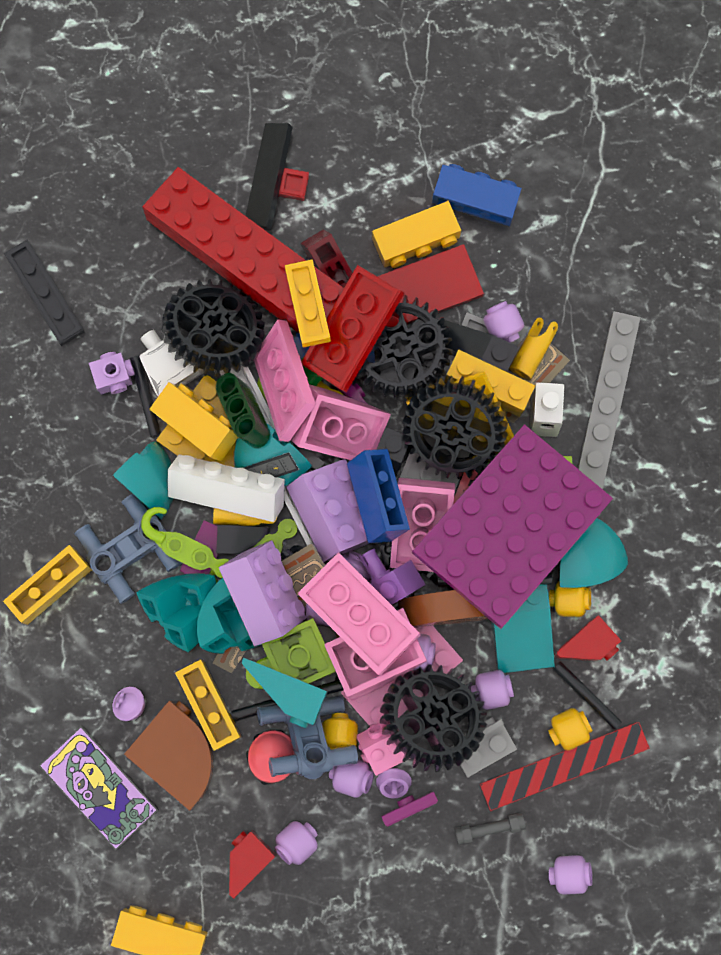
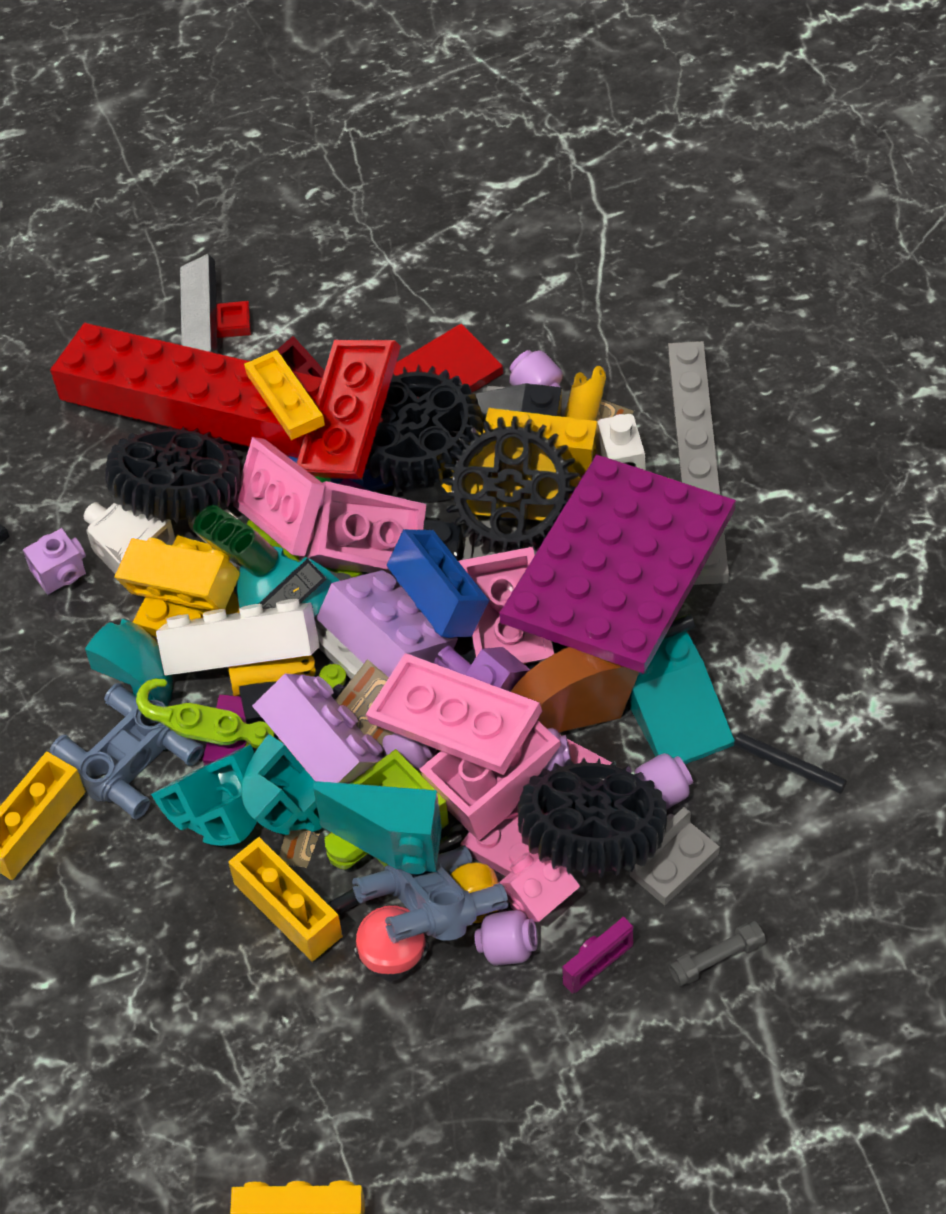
camera: 10 degrees left, 25 degrees down
(98, 787) = (160, 1053): tile -> none
(128, 704) = (175, 934): lavender hat -> none
(145, 396) = (106, 582): black bar -> none
(175, 754) = (255, 977): dark orange brick -> none
(247, 860) = (396, 1081): red slope -> none
(296, 843) = (455, 1040): lavender head -> none
(393, 783) = (566, 929): lavender hat -> none
(416, 235) = (407, 318): yellow brick -> none
(477, 194) = (459, 270): blue brick -> none
(564, 766) = (788, 853): tile -> none
(570, 601) = (727, 653): yellow head -> none
(570, 729) = (781, 800): yellow head -> none
(571, 875) = (847, 975): lavender head -> none
(590, 643) = (770, 697): red slope -> none
(593, 558) = (734, 591): teal brick -> none

